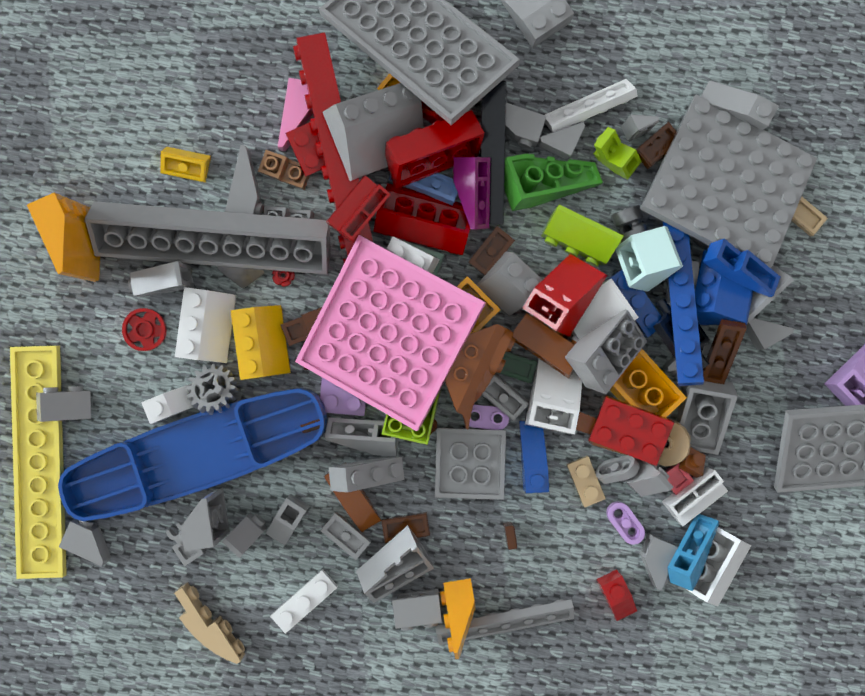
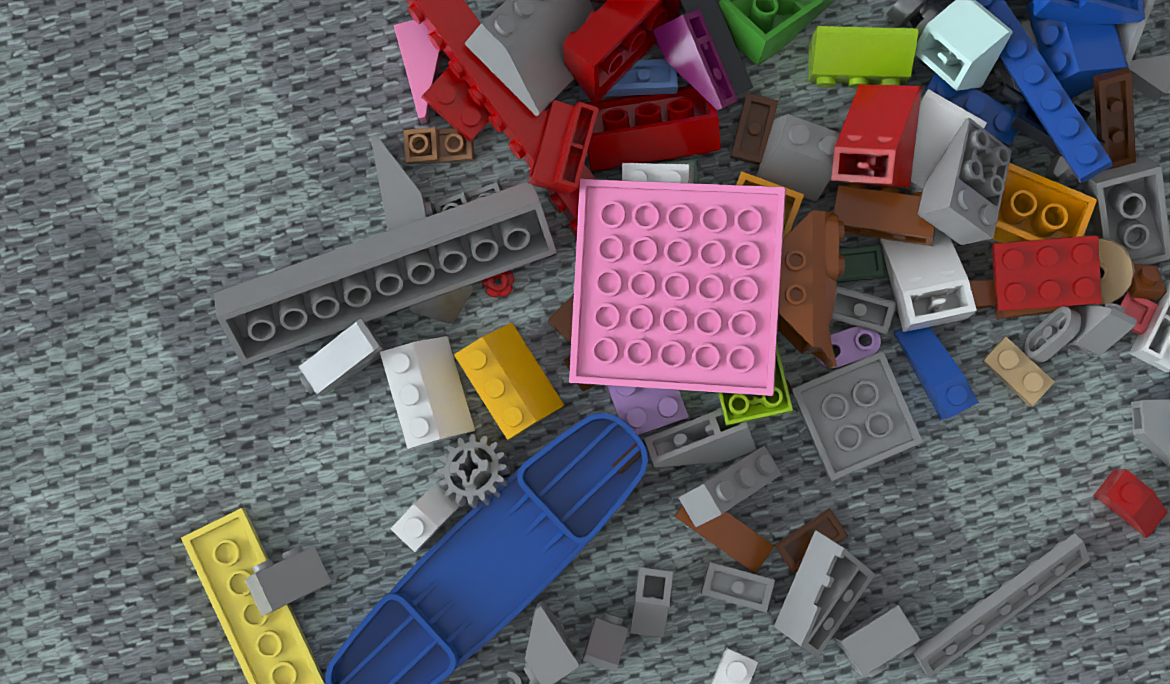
camera: 25 degrees left, 5 degrees down
(66, 236) = (199, 340): light orange slope -> none
(144, 329) = (346, 435): red wheel -> none
(184, 164) = (304, 197): yellow slope -> none
(295, 331) = (548, 346): reddish brown plate -> none
(461, 607) = (933, 608): light orange slope -> none
(510, 535) = (954, 486): reddish brown tile -> none
(624, 522) = (1094, 401): lavender plate -> none

